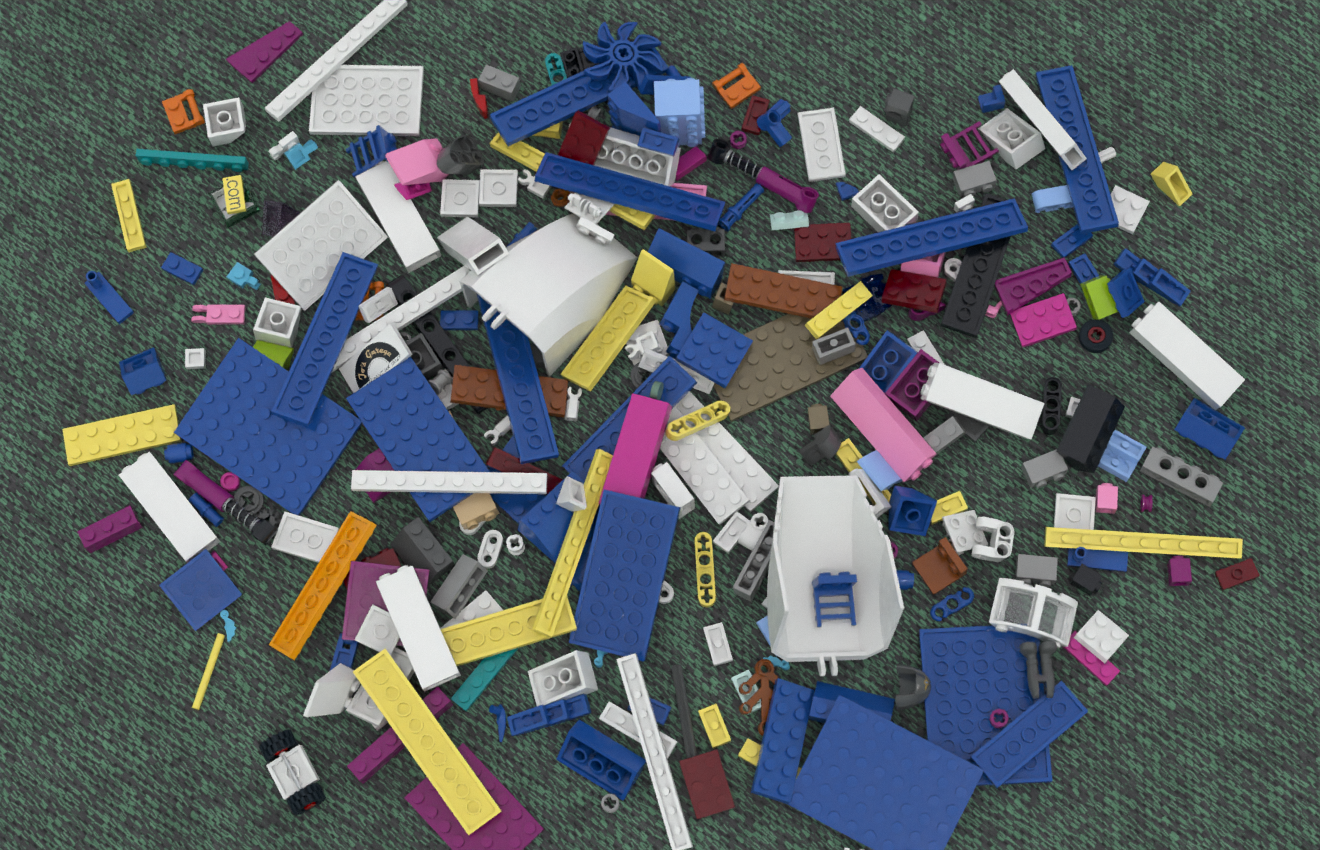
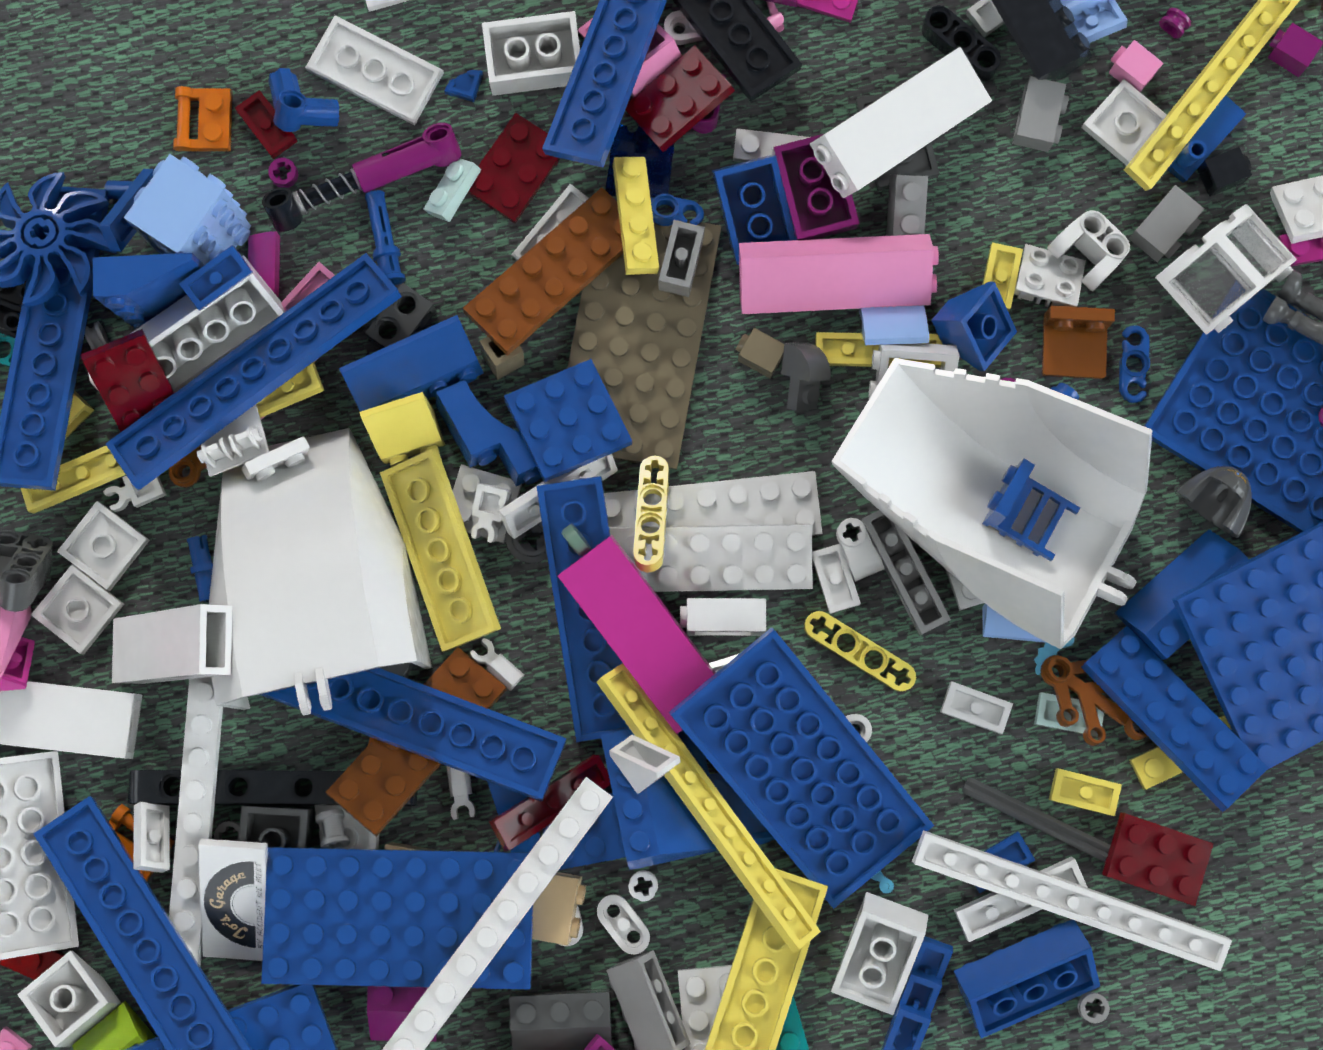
camera: 60 degrees left, 10 degrees up
(459, 320) = (257, 736): blue plate -> none

